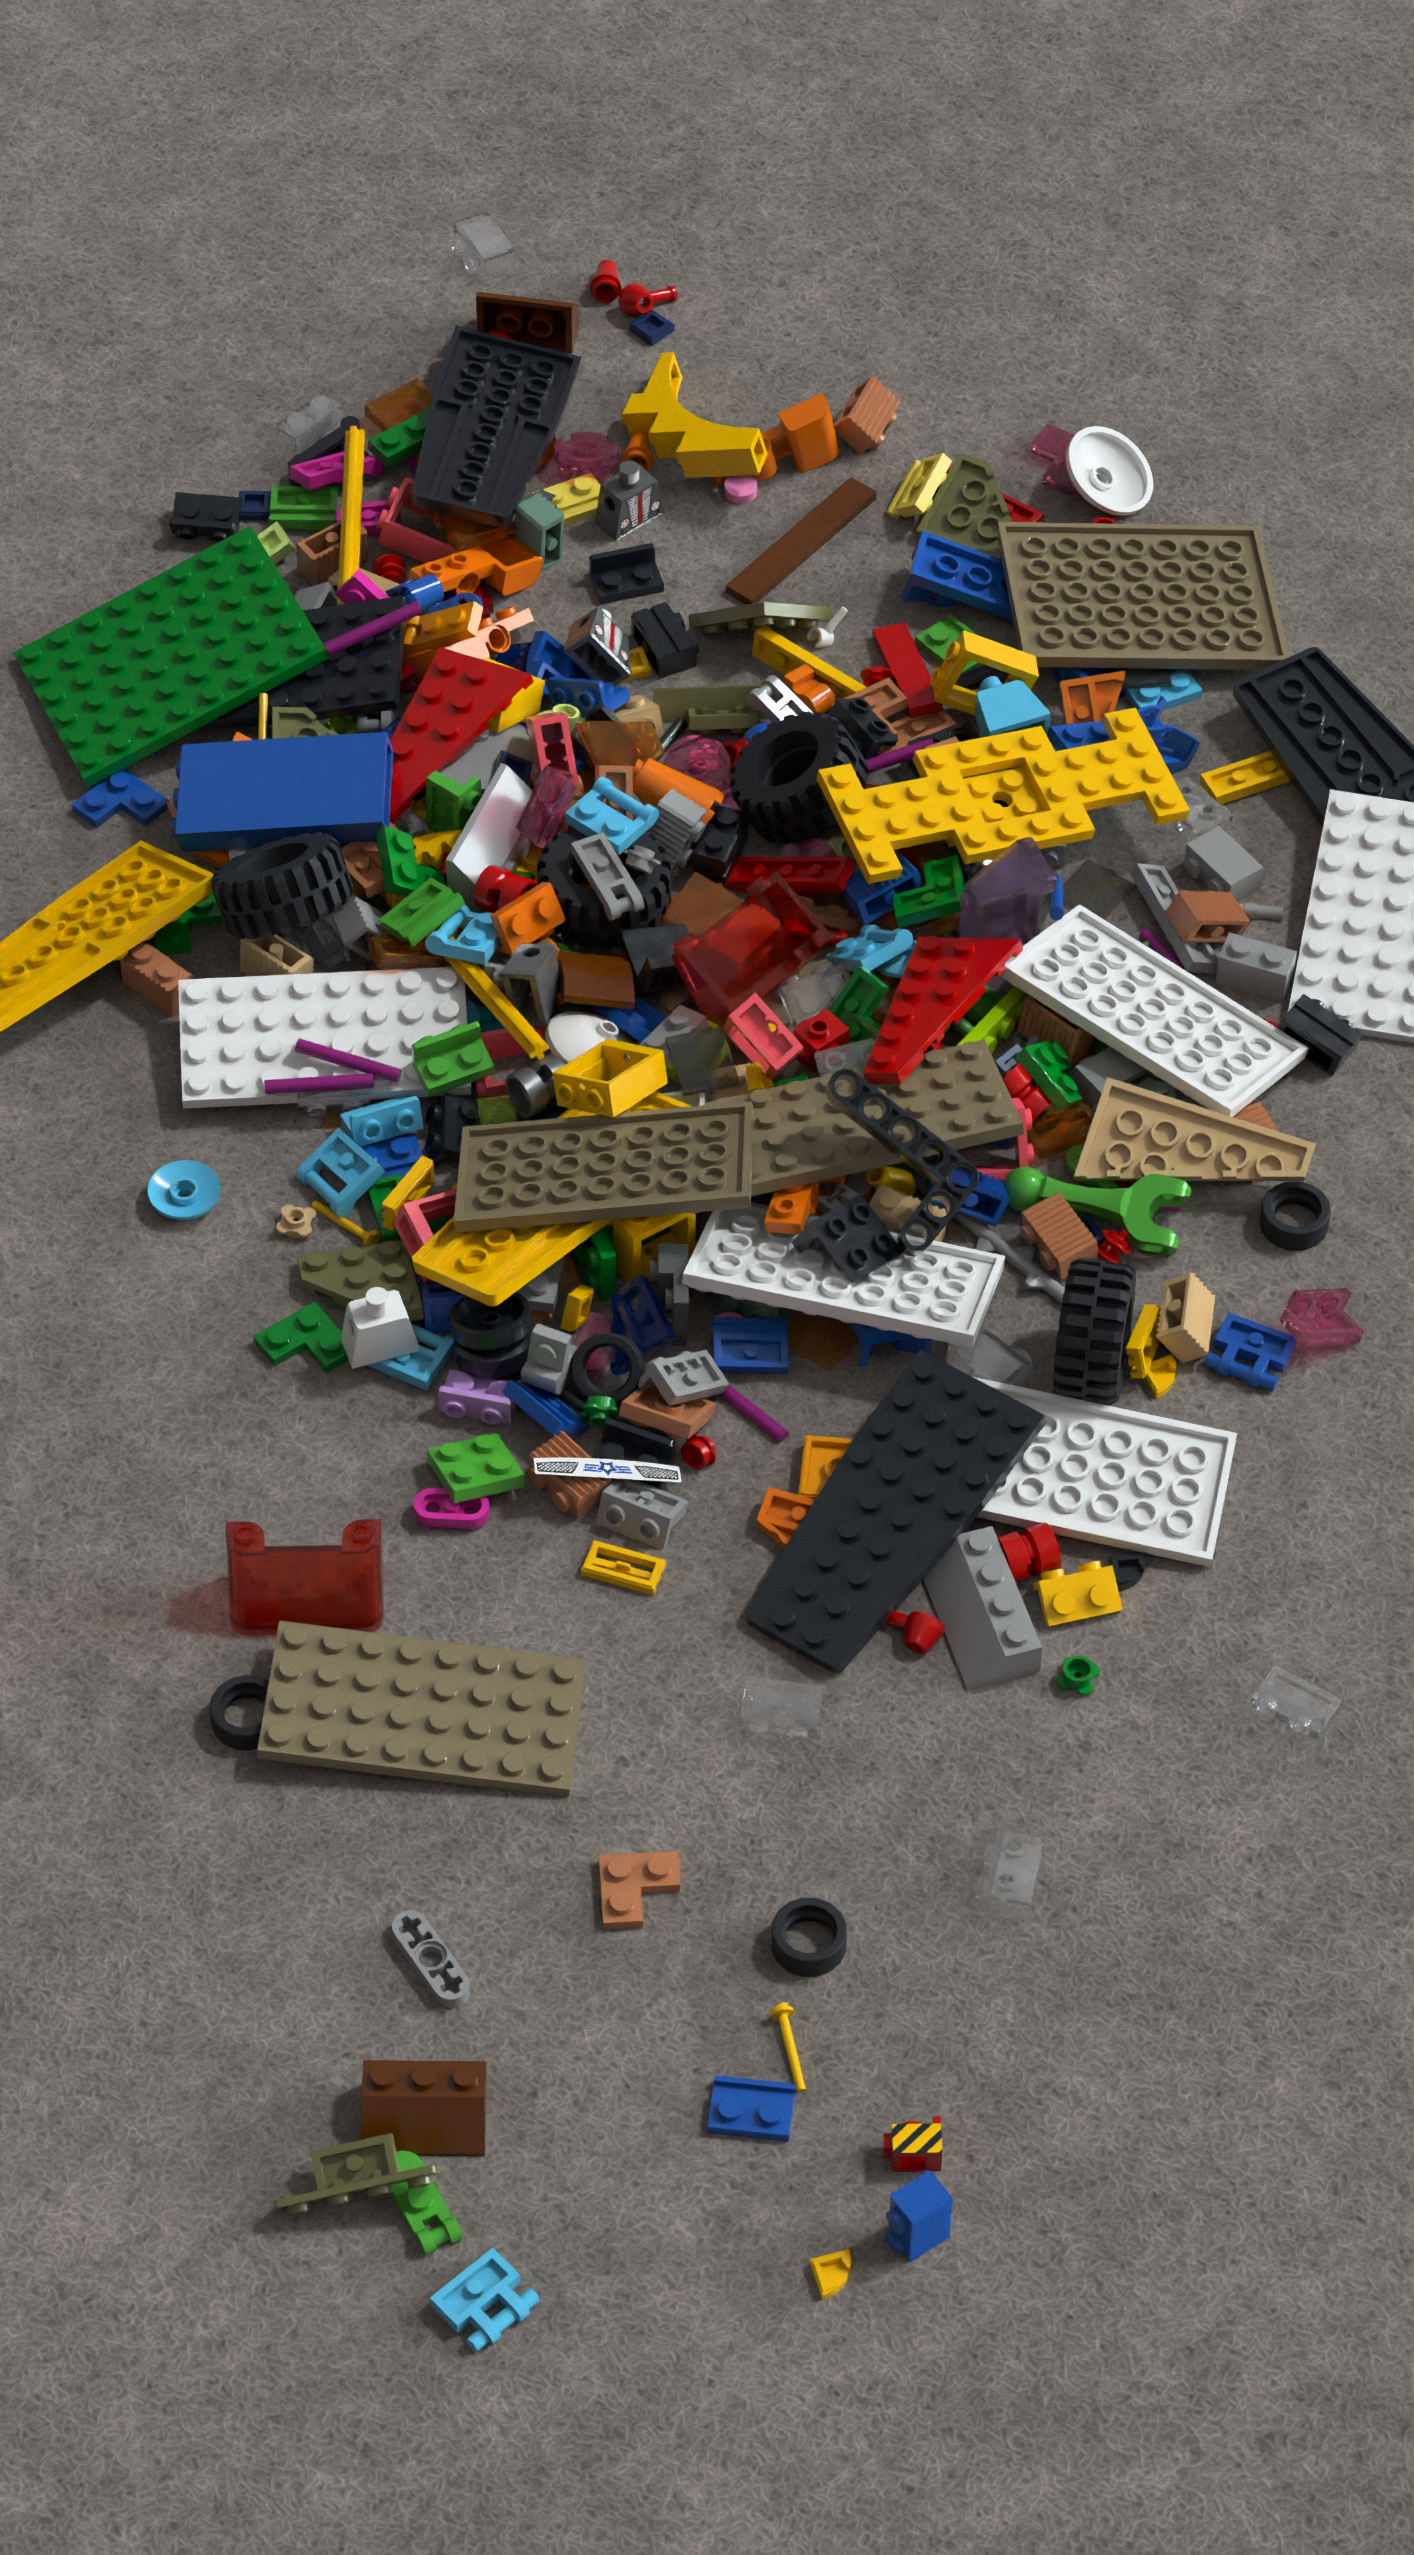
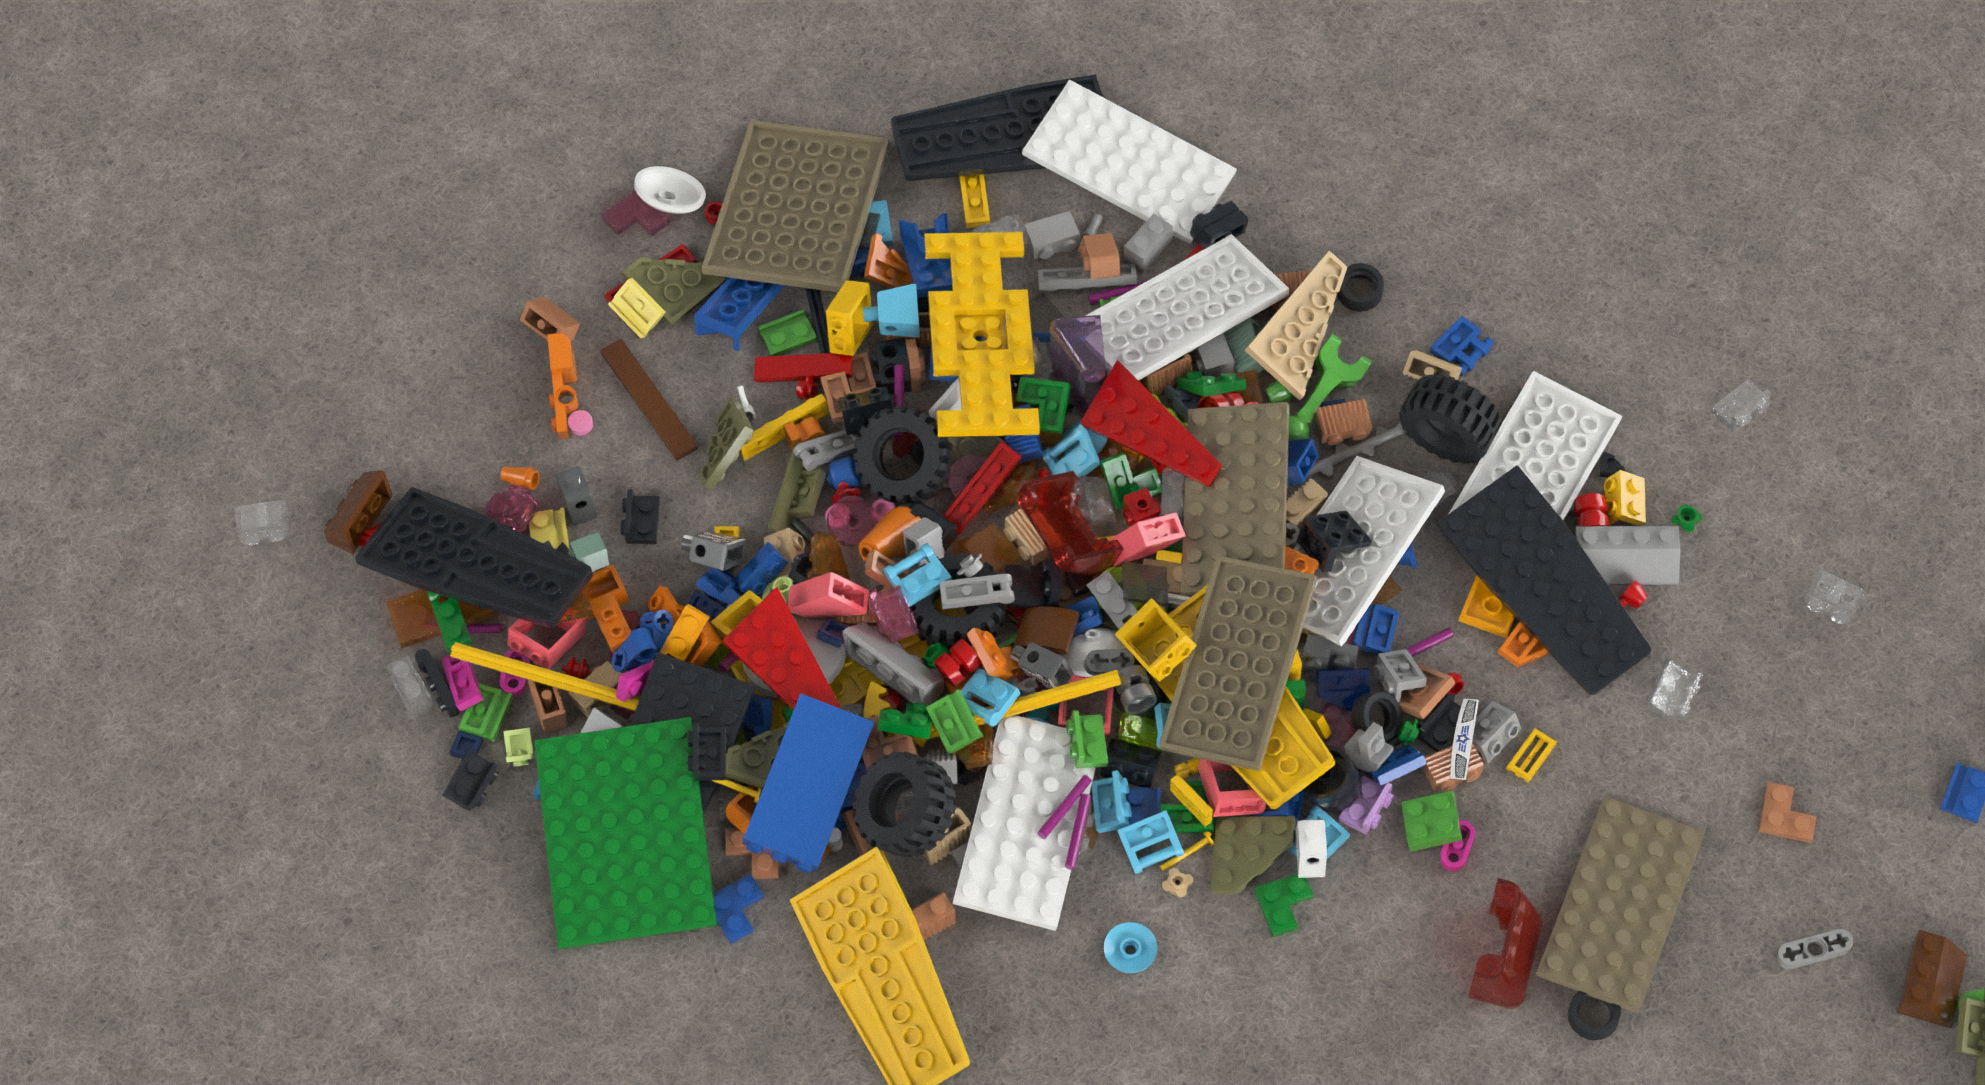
camera: 70 degrees left, 10 degrees up
(282, 676) = (708, 753): none -> black bracket
(373, 628) = (685, 679): magenta bar -> none
(450, 803) = (852, 680): bright green bracket -> none
(573, 1039) = (1107, 656): none -> dark grey beam
(605, 284) = (333, 451): red cone -> none
(632, 294) = (365, 434): red bar -> none
(651, 327) = (391, 435): dark blue tile -> none
(664, 639) = (716, 509): black brick -> none
(697, 444) = (555, 427): yellow arch -> none
(782, 2013) = (1925, 758): yellow piece -> none
(809, 1963) = (1846, 741): black tyre -> none
(910, 1153) = (1318, 459): black beam -> none
(1113, 1246) = (1357, 392): red wheel -> none
(1320, 1319) = (1456, 298): clear pink bracket -> none

